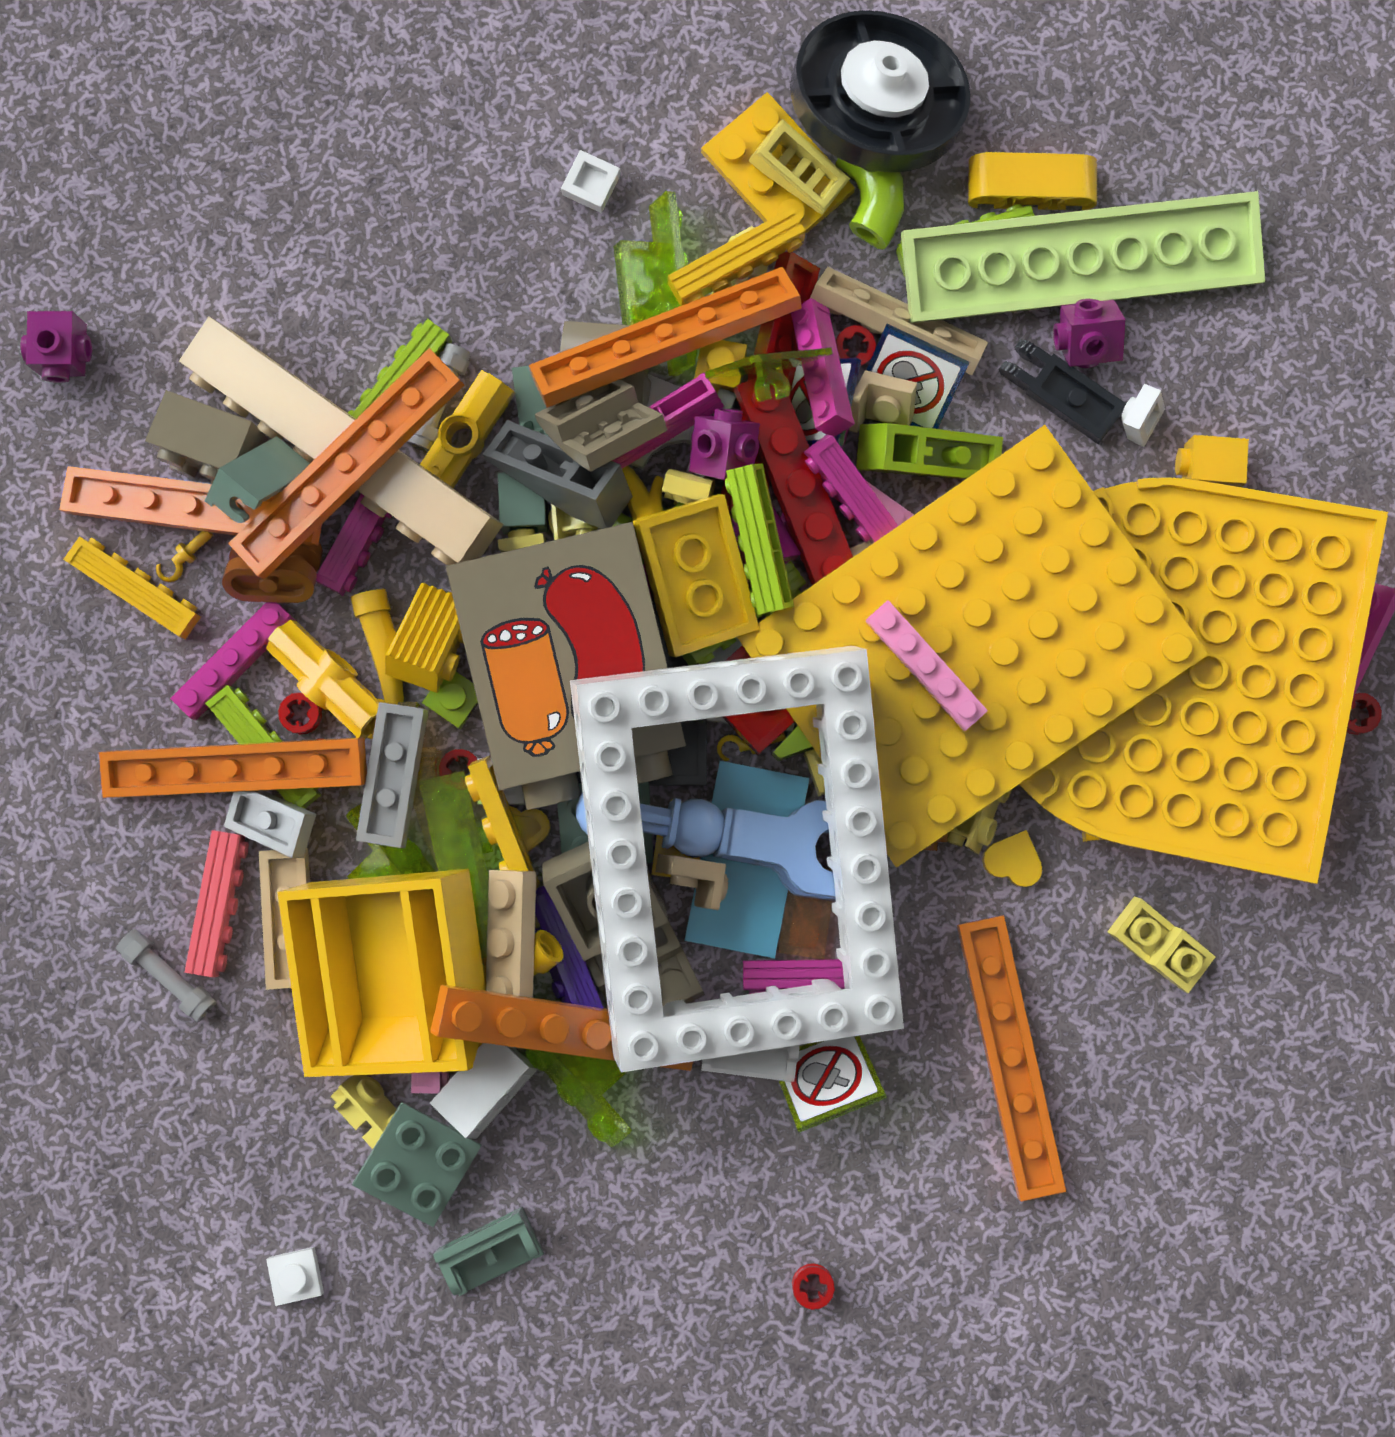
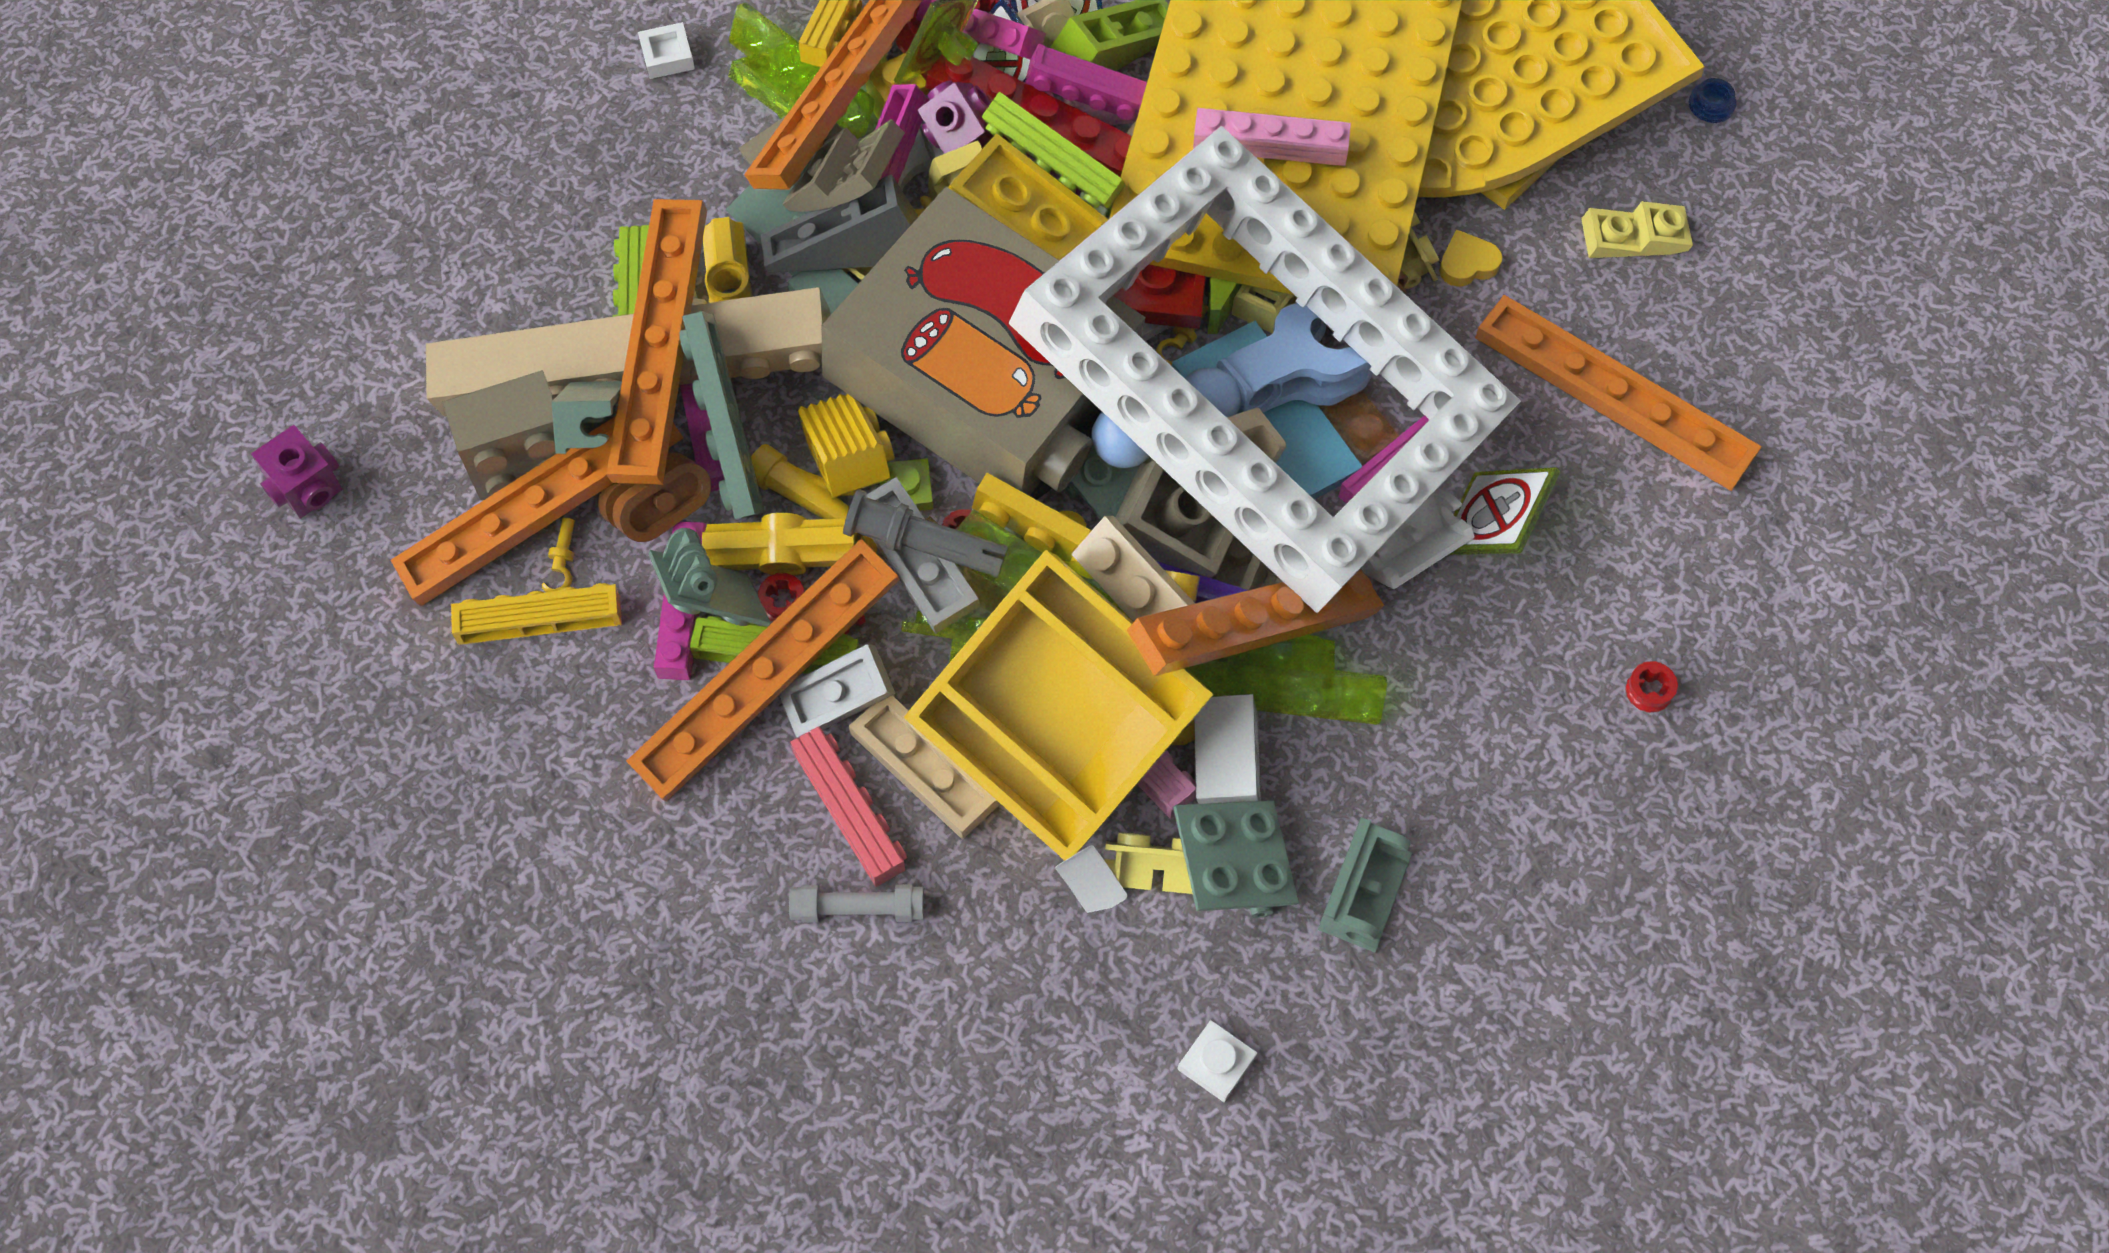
camera: 45 degrees left, 20 degrees down
(238, 678) = (698, 586): none -> sand green hinge
(318, 1097) = (1091, 880): none -> white sticker
(354, 546) = (716, 395): none -> sand green plate
(385, 756) = (900, 528): none -> dark grey pin
(1334, 889) = (1713, 100): none -> clear blue plate

